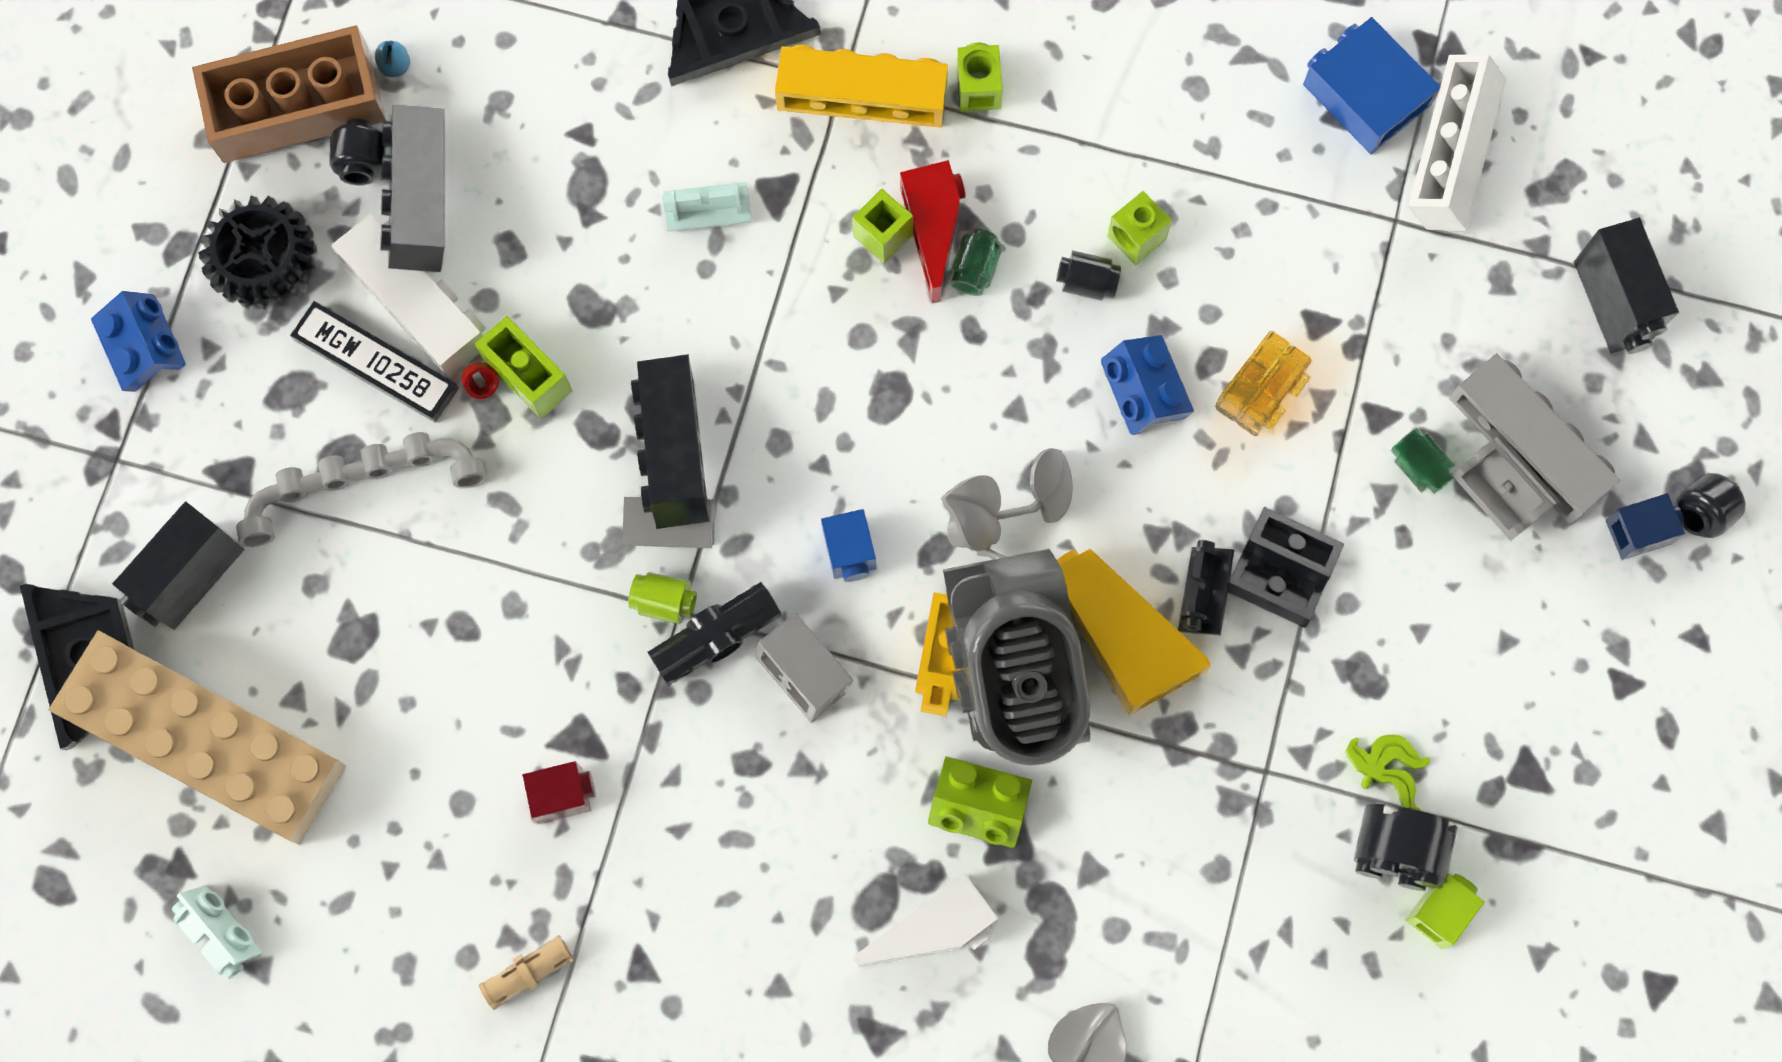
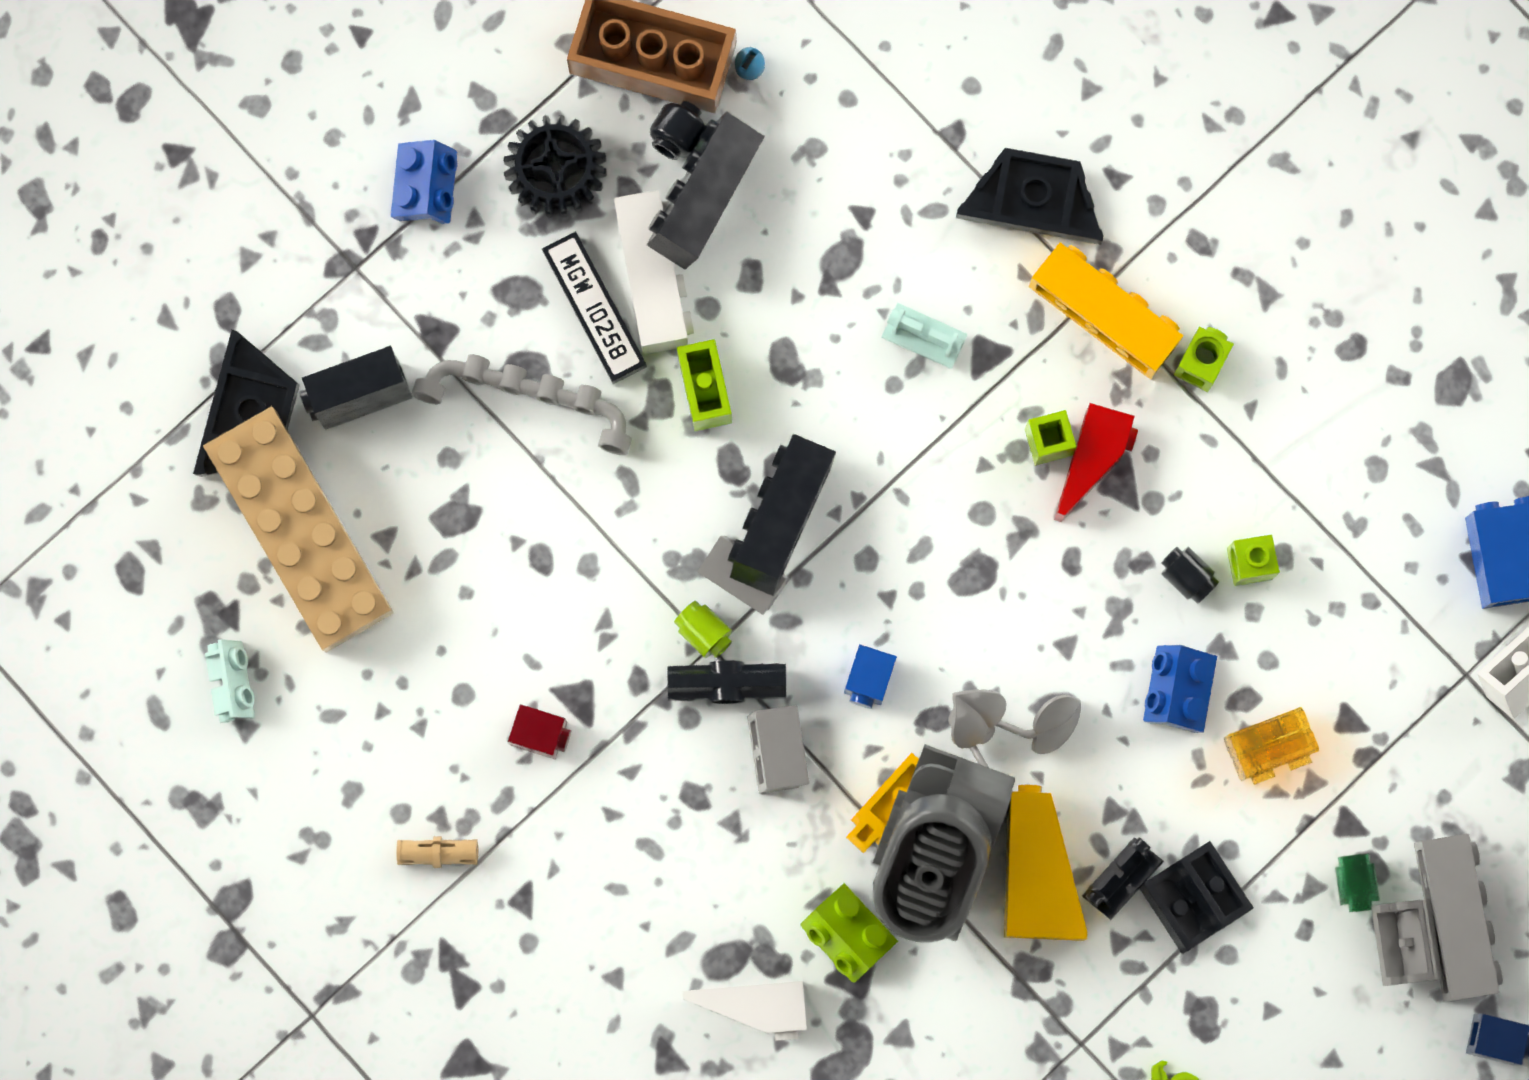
camera: 30 degrees right, 5 degrees up
(487, 373) = (665, 382): red hinge -> none
(975, 262) = (1106, 509): clear green brick -> none

